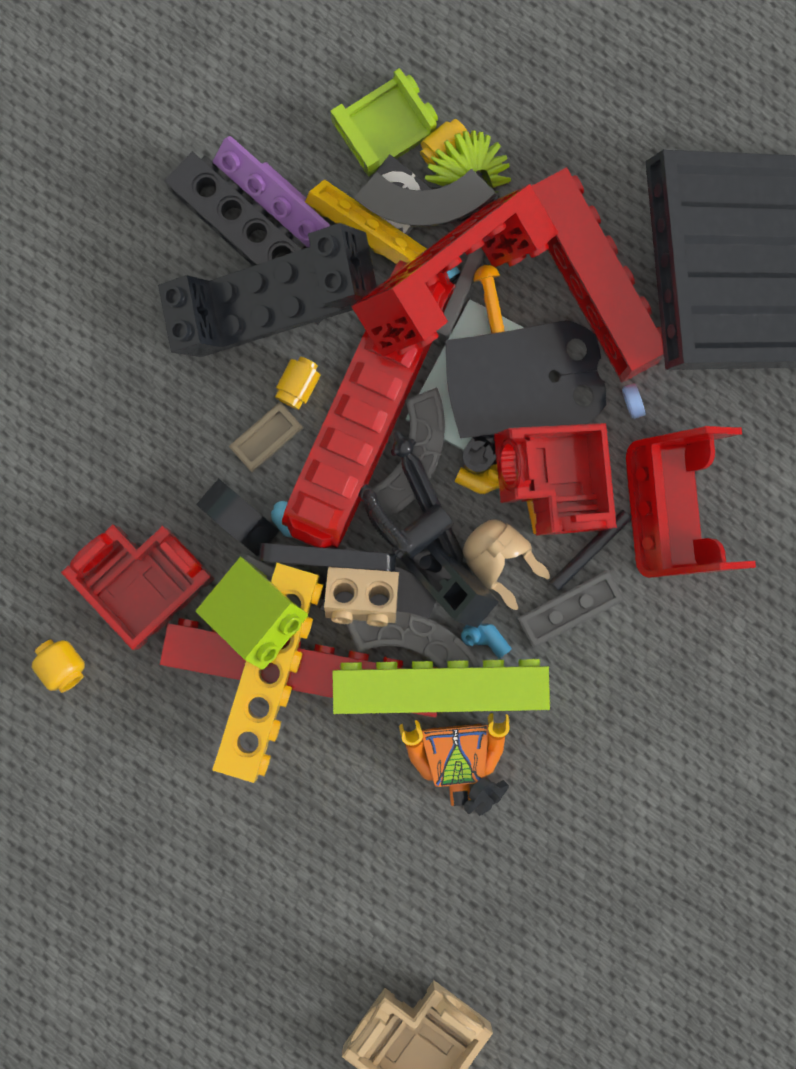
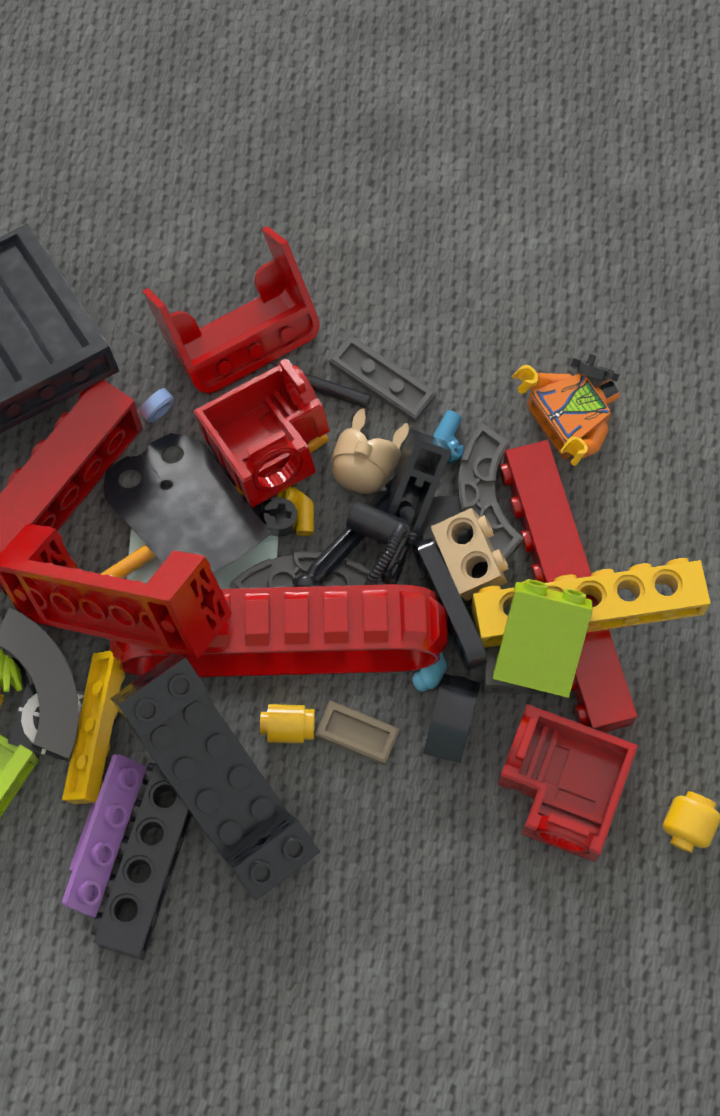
camera: 115 degrees left, 15 degrees down
(441, 689) = (521, 443): lime brick -> none

